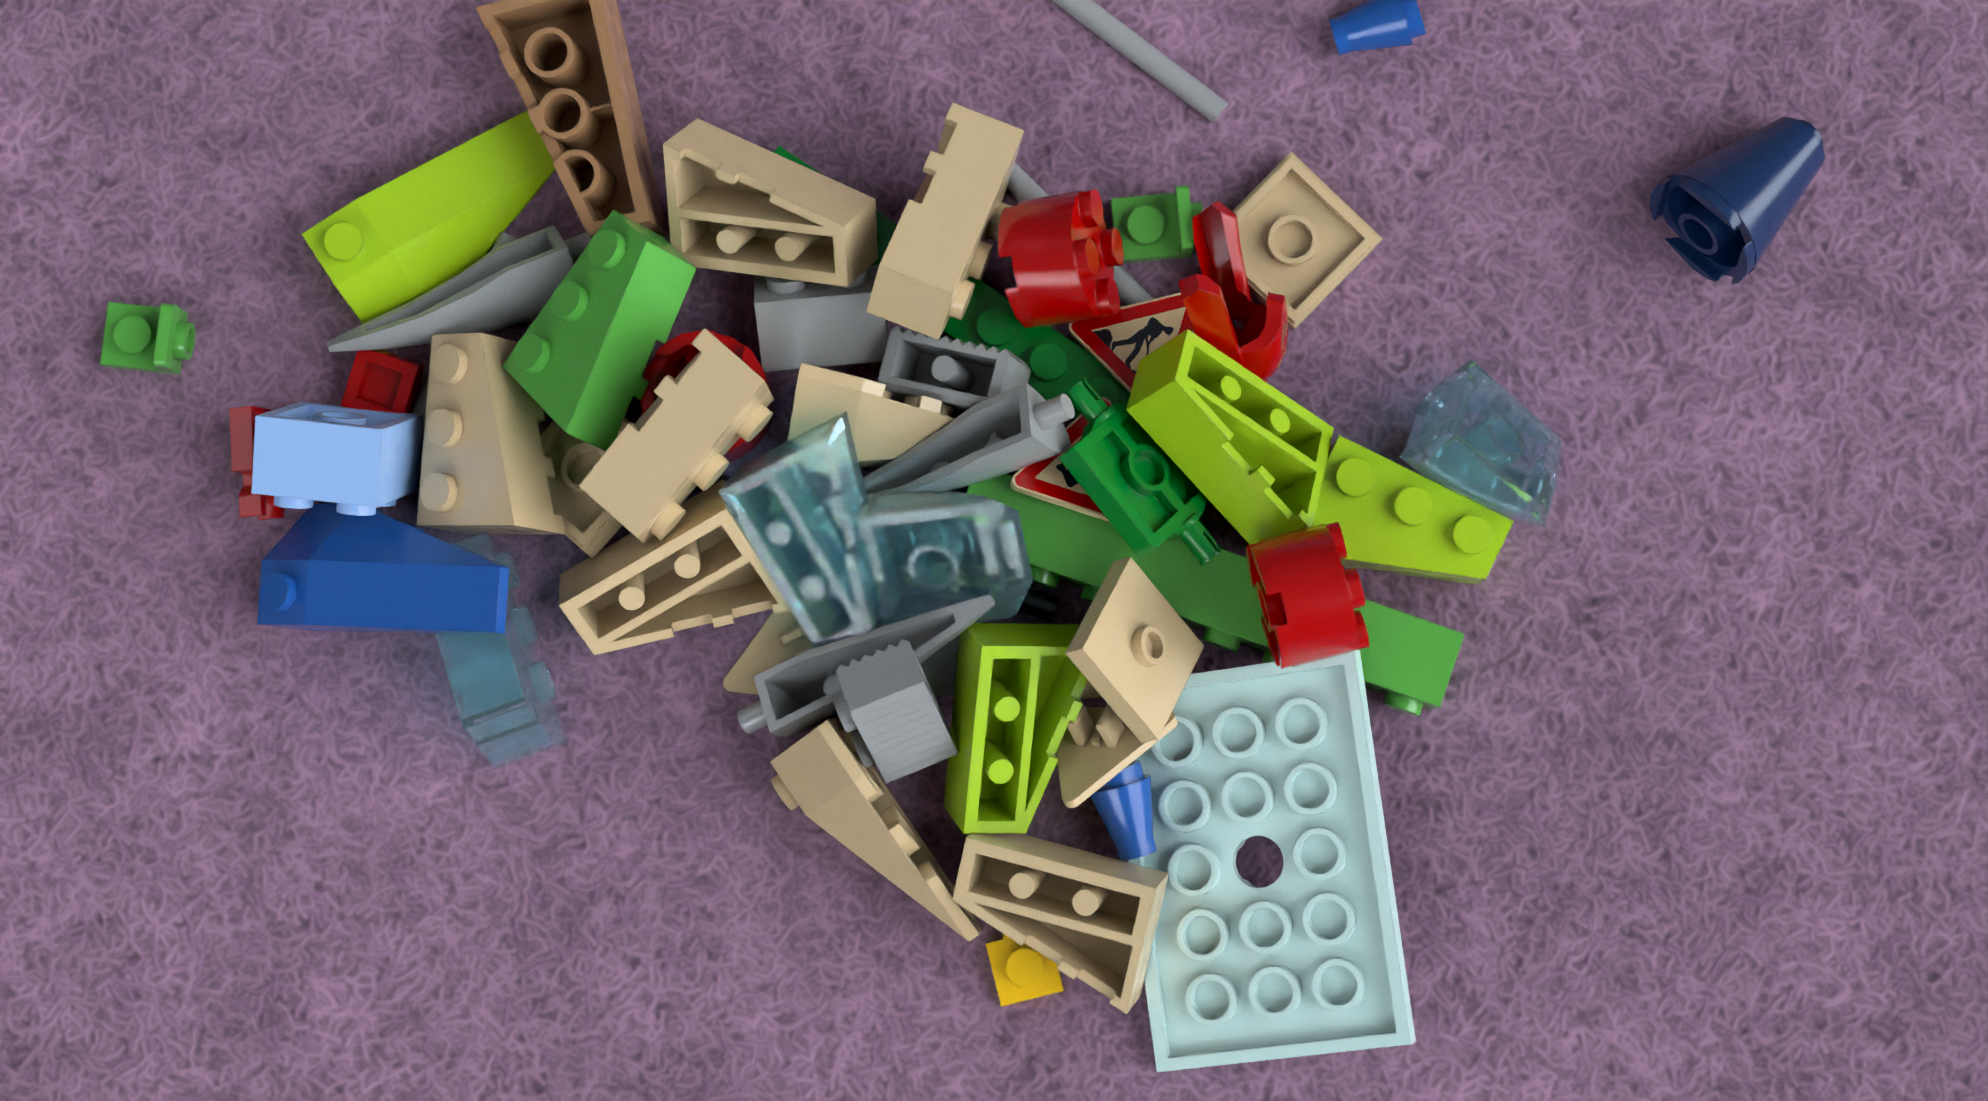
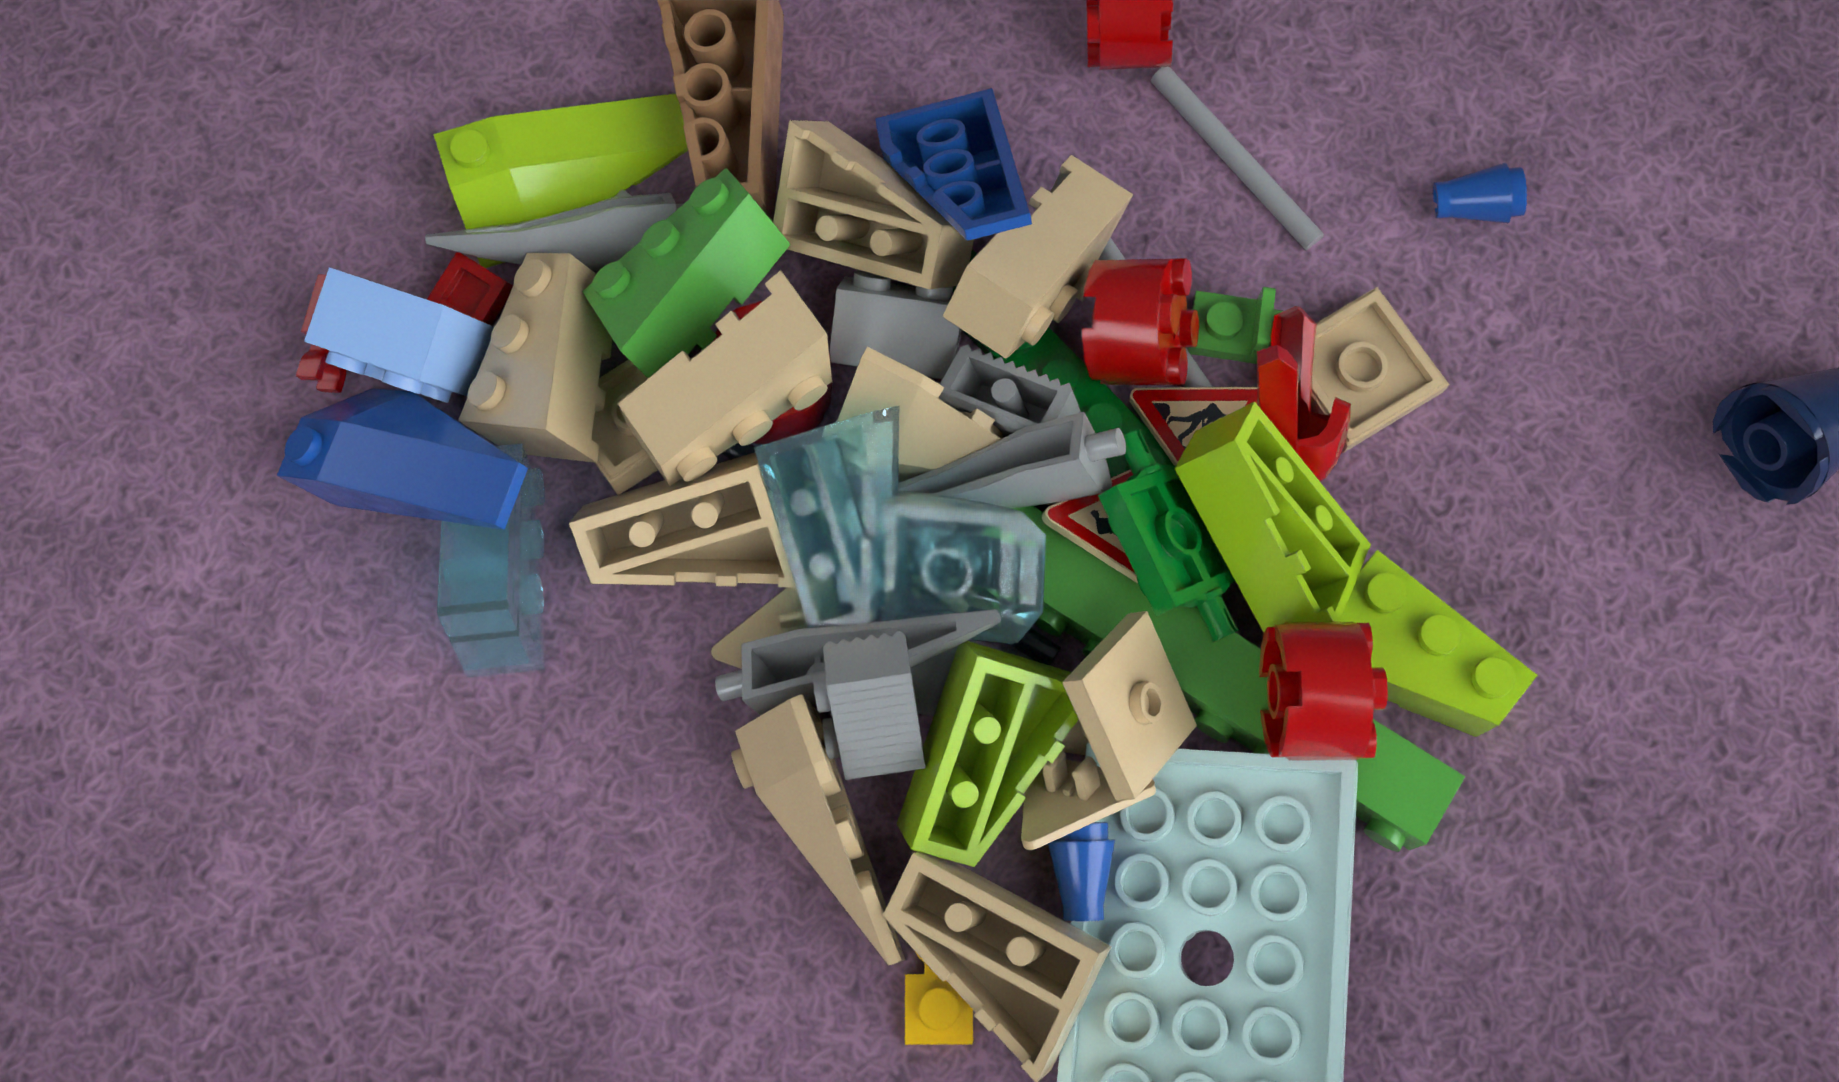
camera: 10 degrees right, 10 degrees down
(147, 338) = (269, 204): bright green bracket -> none
(843, 142) = (958, 162): none -> blue wedge
(1485, 446) = (1516, 599): clear light blue slope -> none

